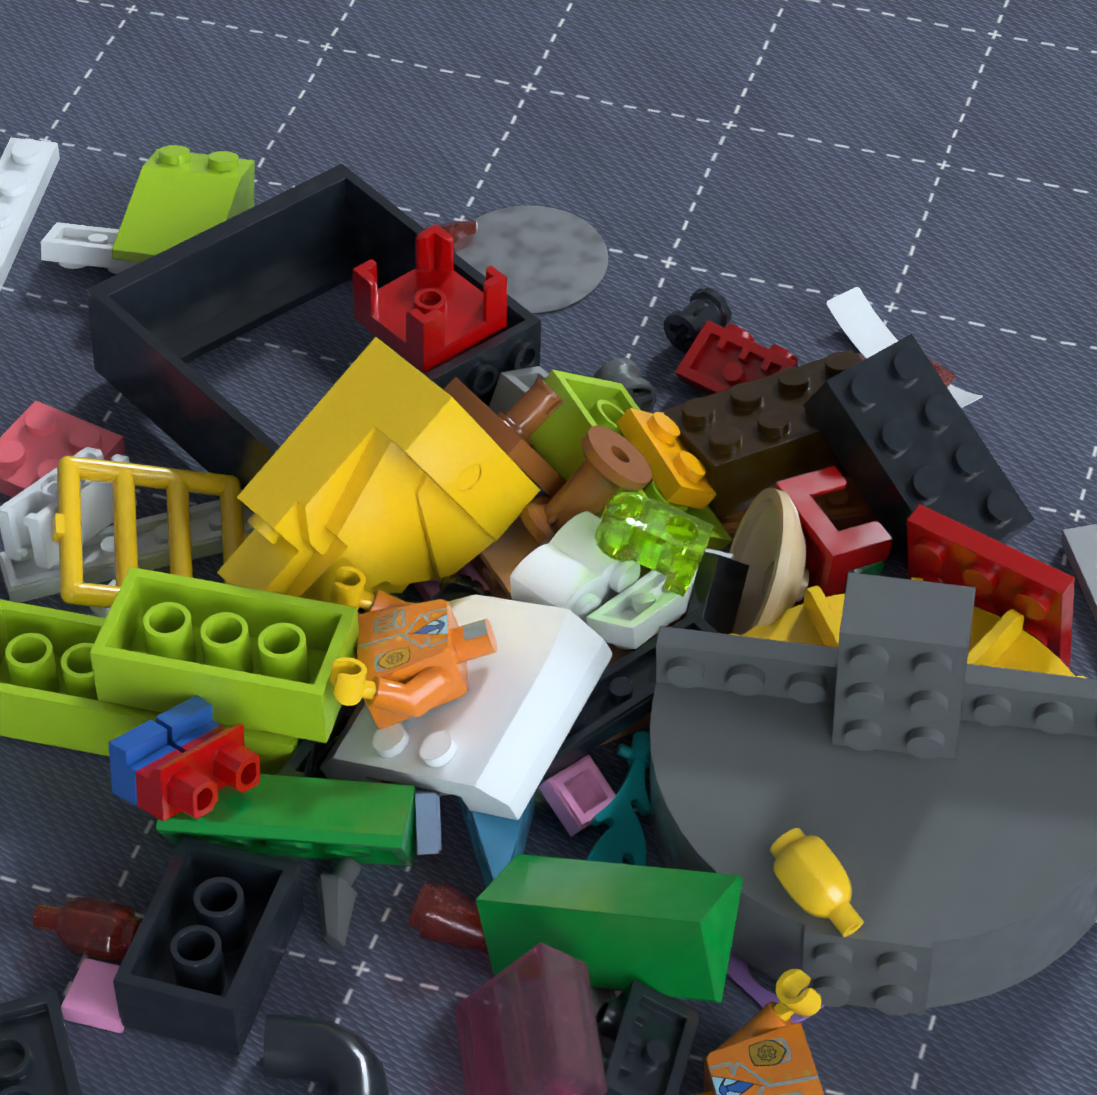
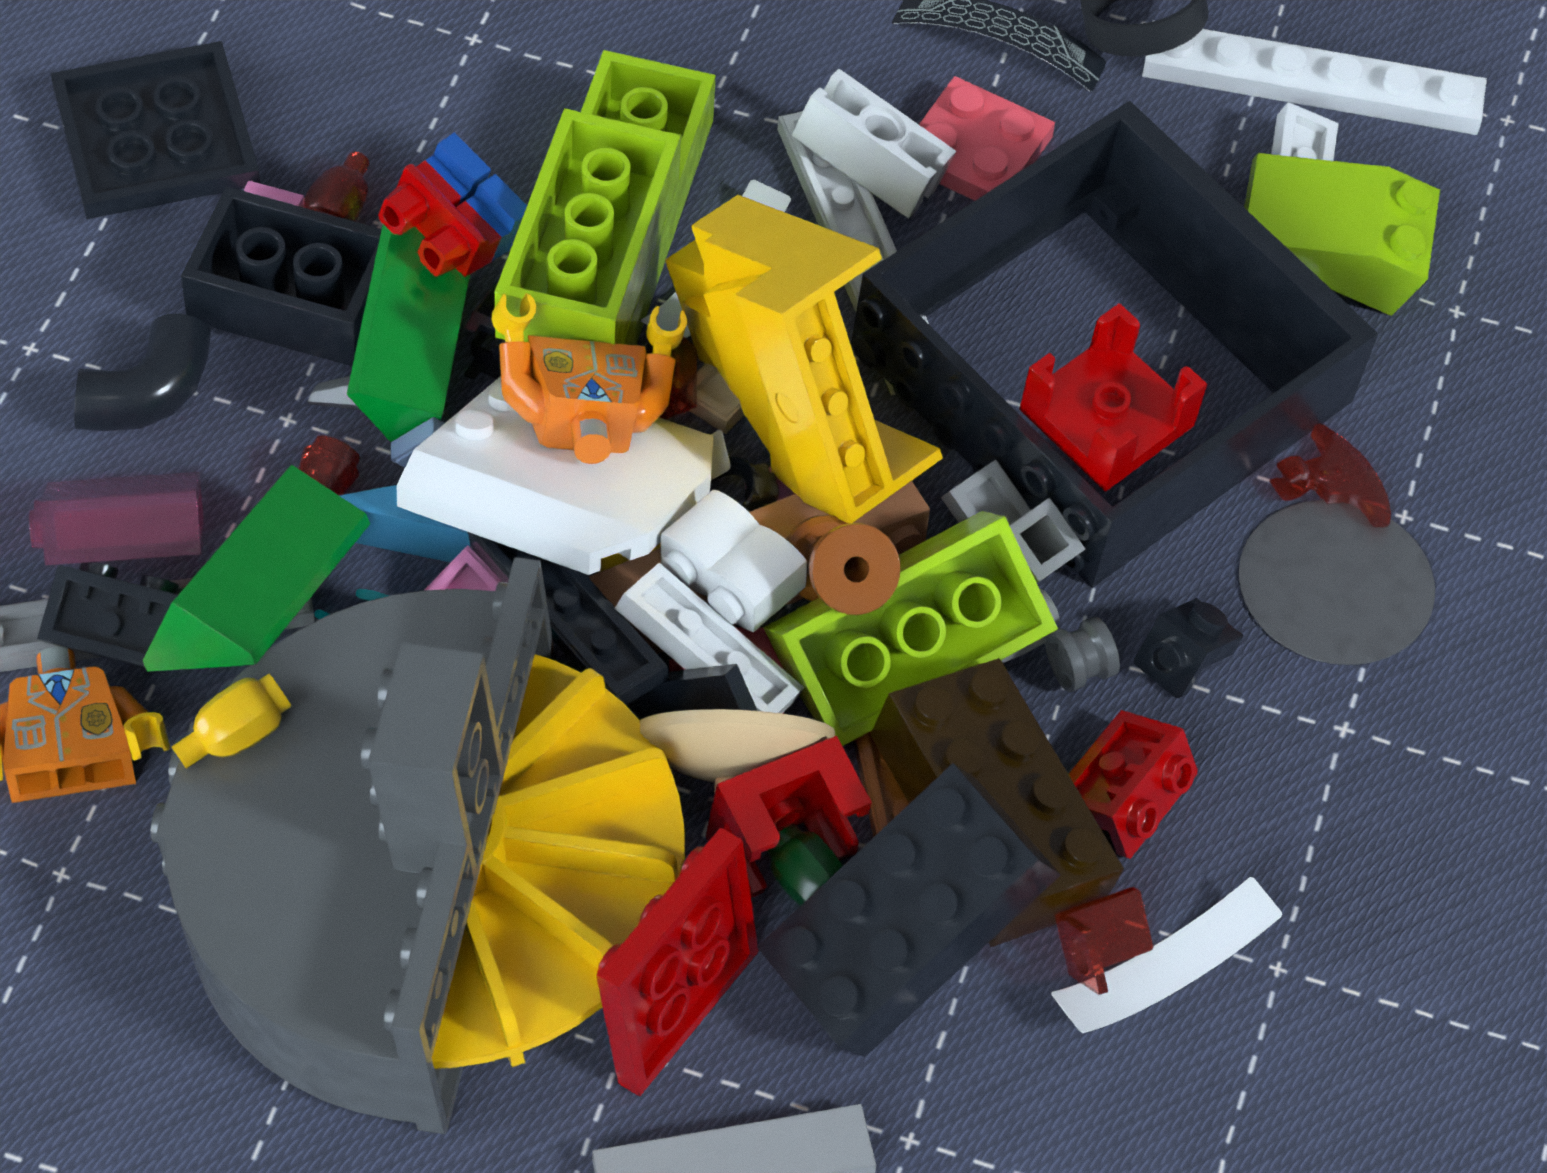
camera: 85 degrees right, 10 degrees up
(178, 483) = (807, 123): yellow bar -> none
(514, 428) = (911, 475): dark orange tile -> none
(609, 328) = (1184, 644): none -> black bracket
(654, 537) = (733, 604): clear neon green leg -> none
(673, 468) = (917, 653): light orange plate -> none
(694, 316) = (1216, 737): black bush -> none

